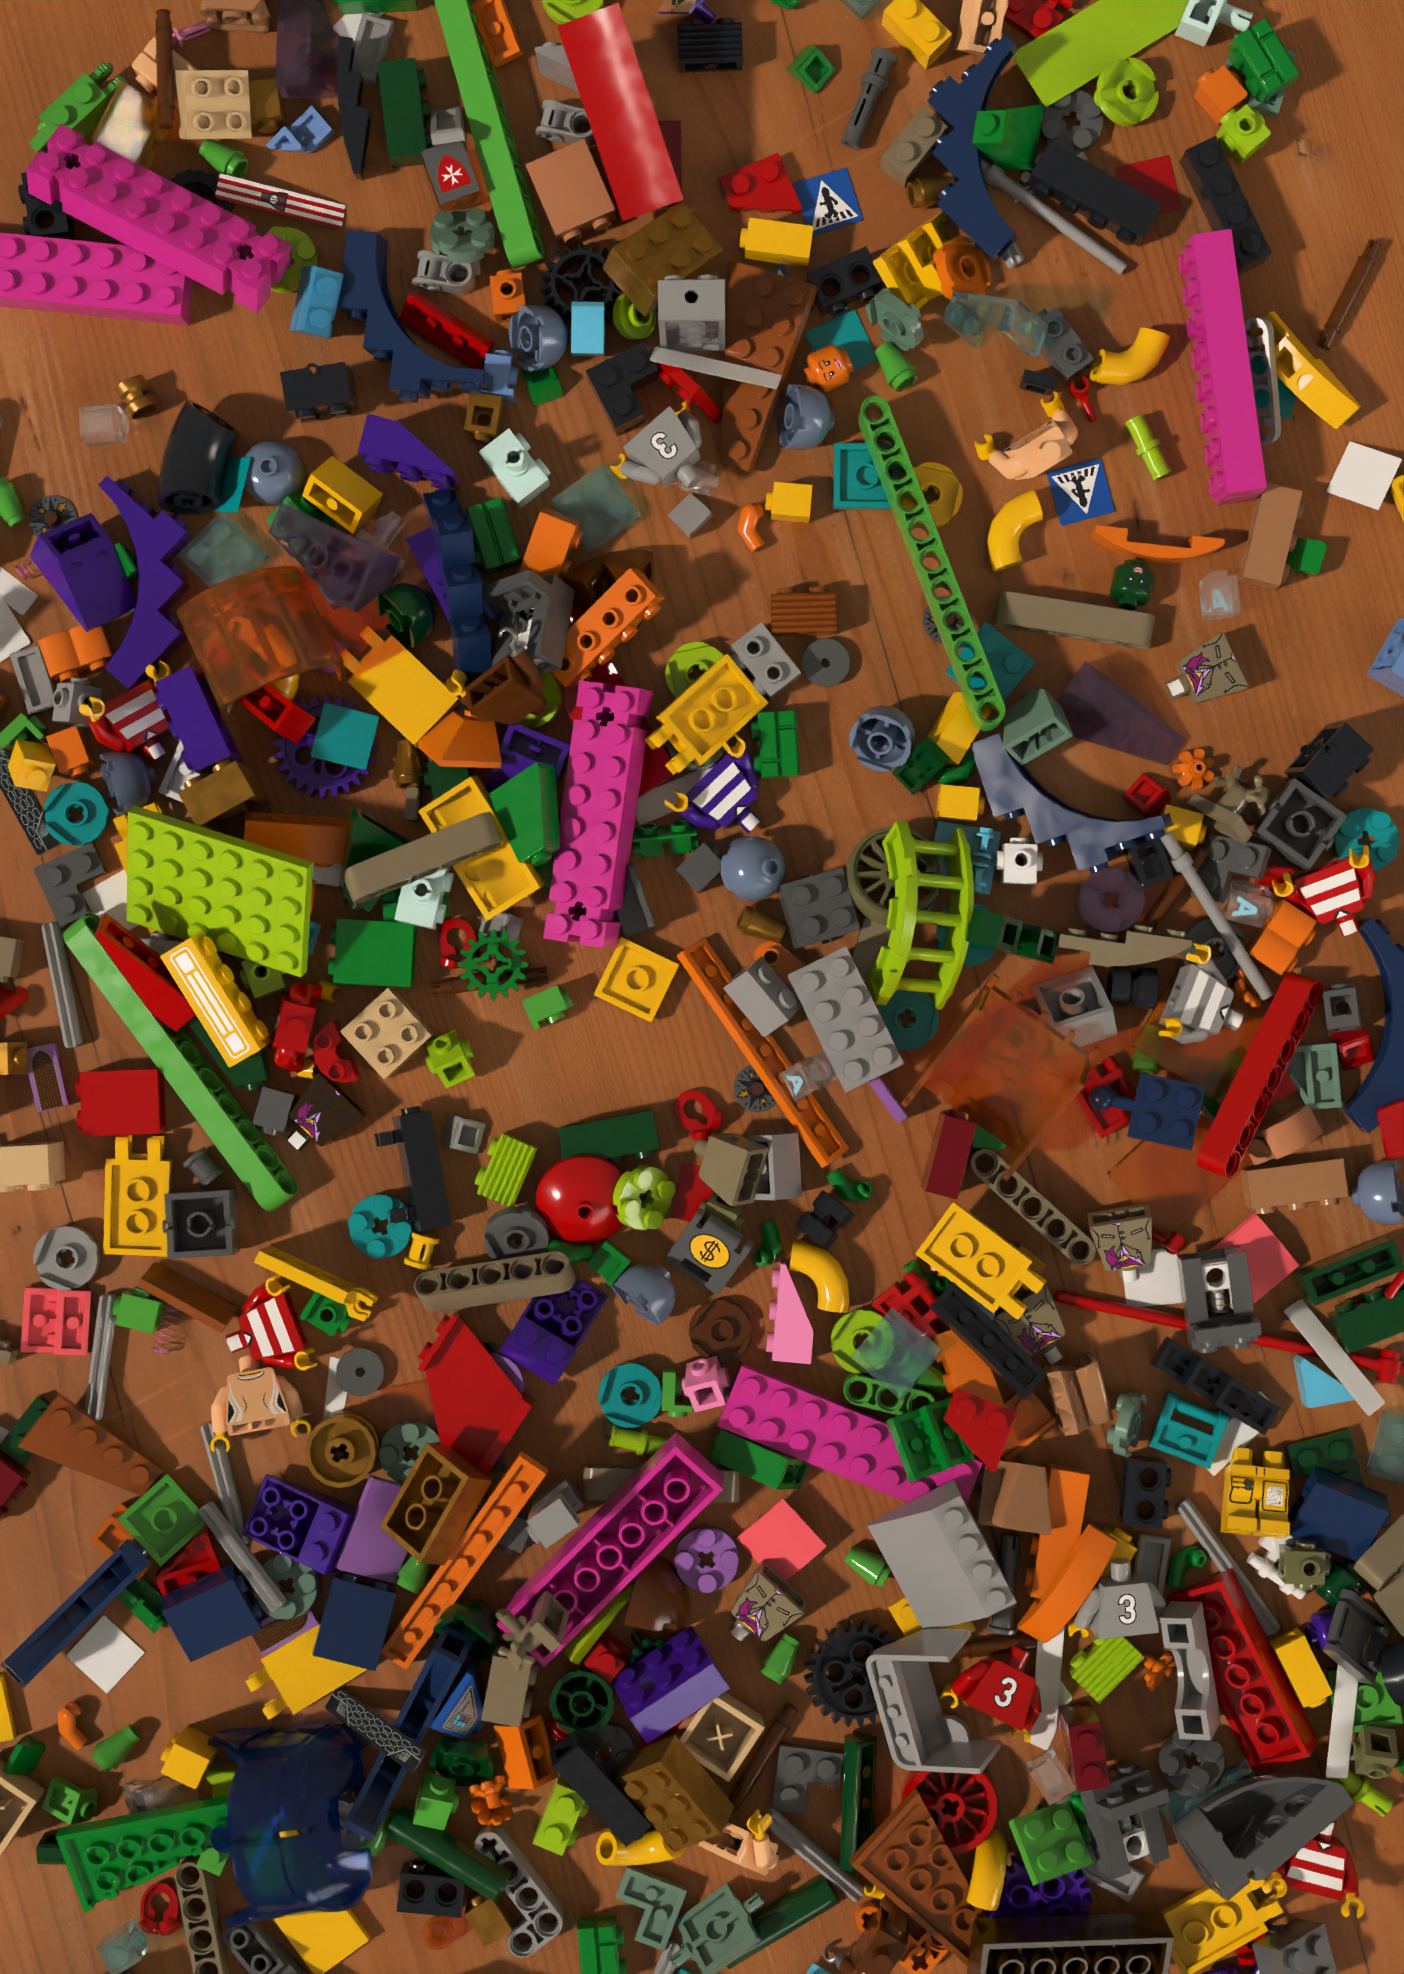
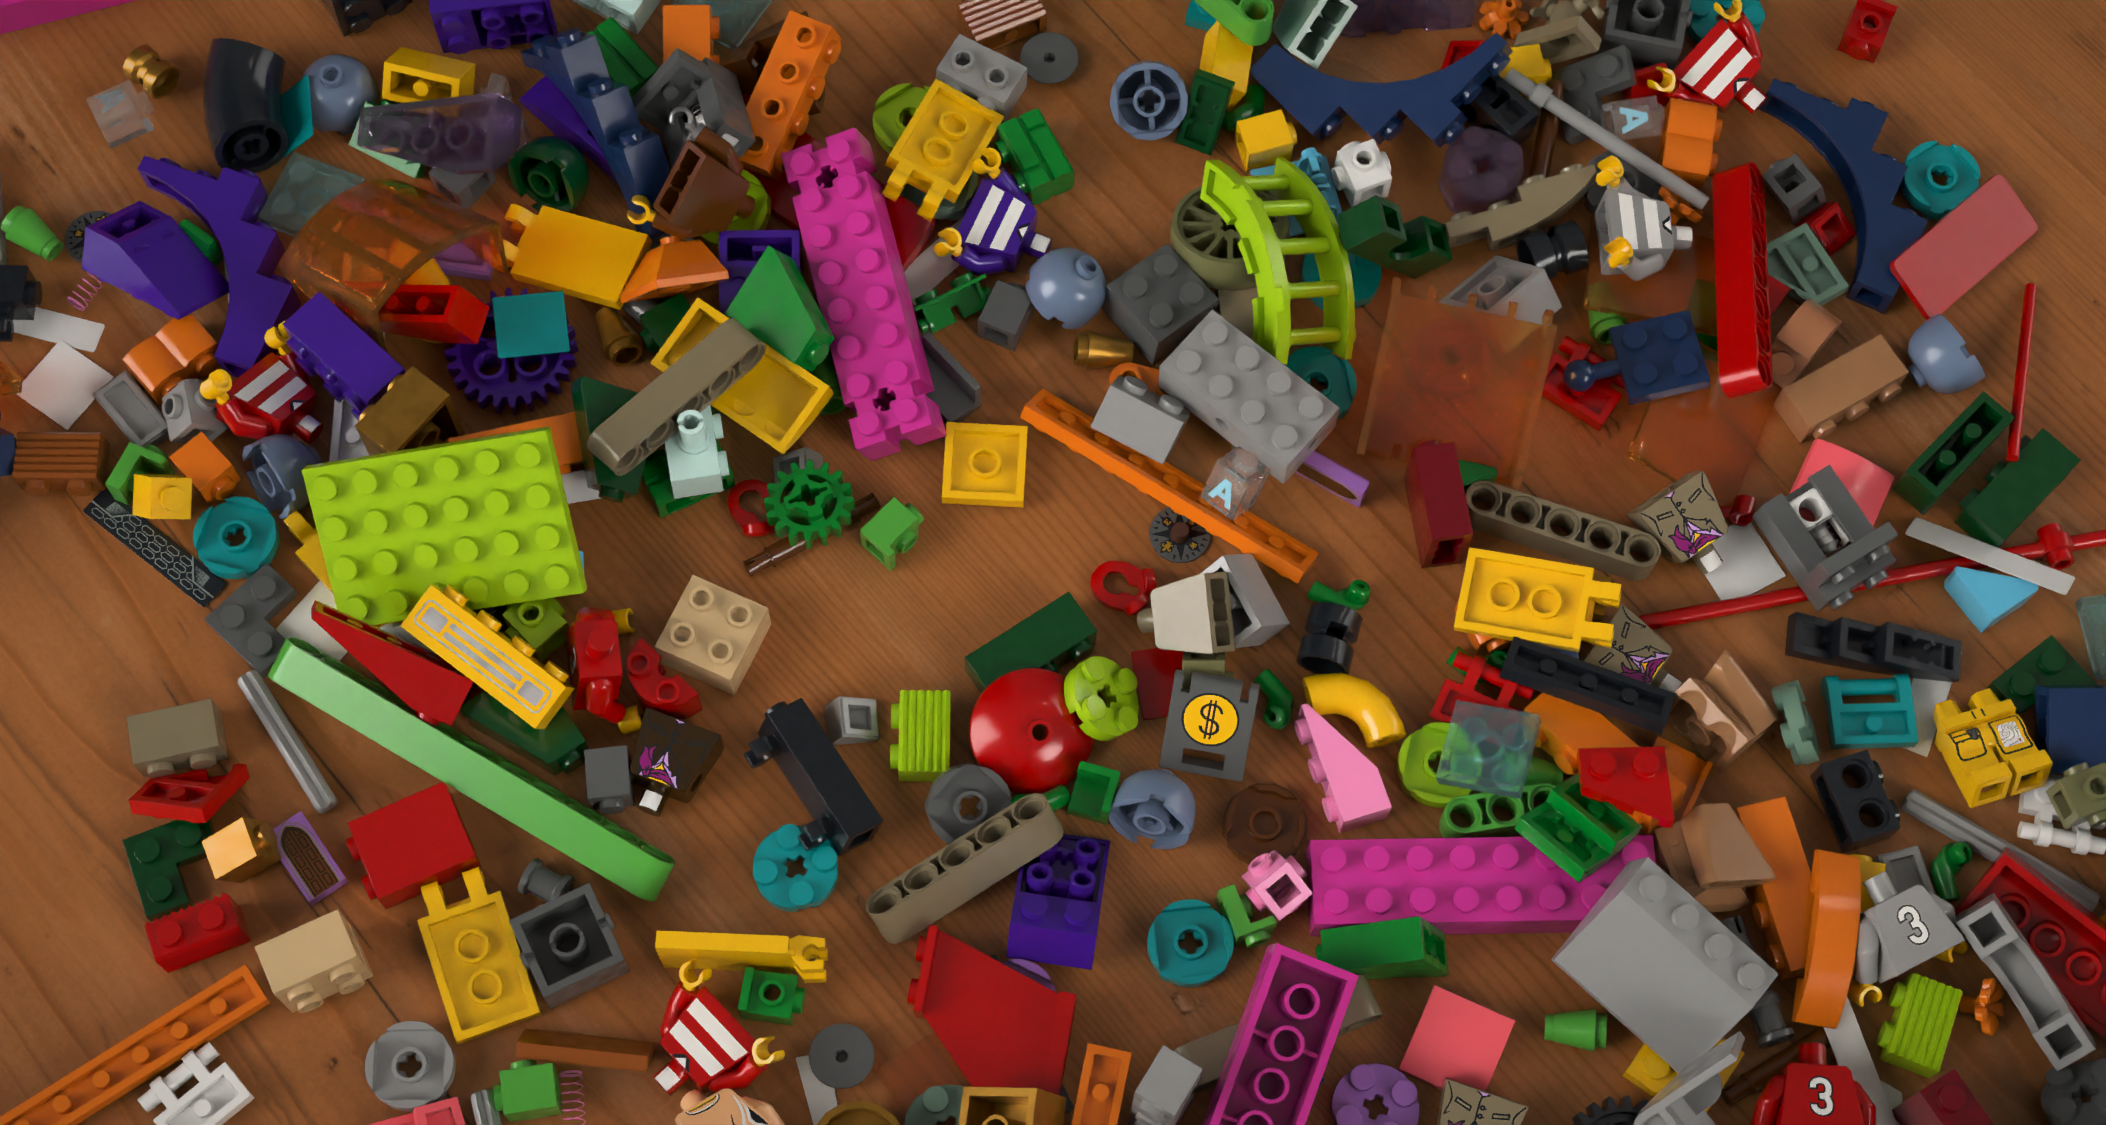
camera: 30 degrees left, 20 degrees down
(373, 953) = (658, 552): green brick -> none
(413, 804) = (639, 367): dark tan tile -> none
(428, 1243) = (857, 873): yellow bush -> none
(450, 1059) = (801, 632): lime brick -> none
(636, 1441) = (1219, 997): lime pin -> none

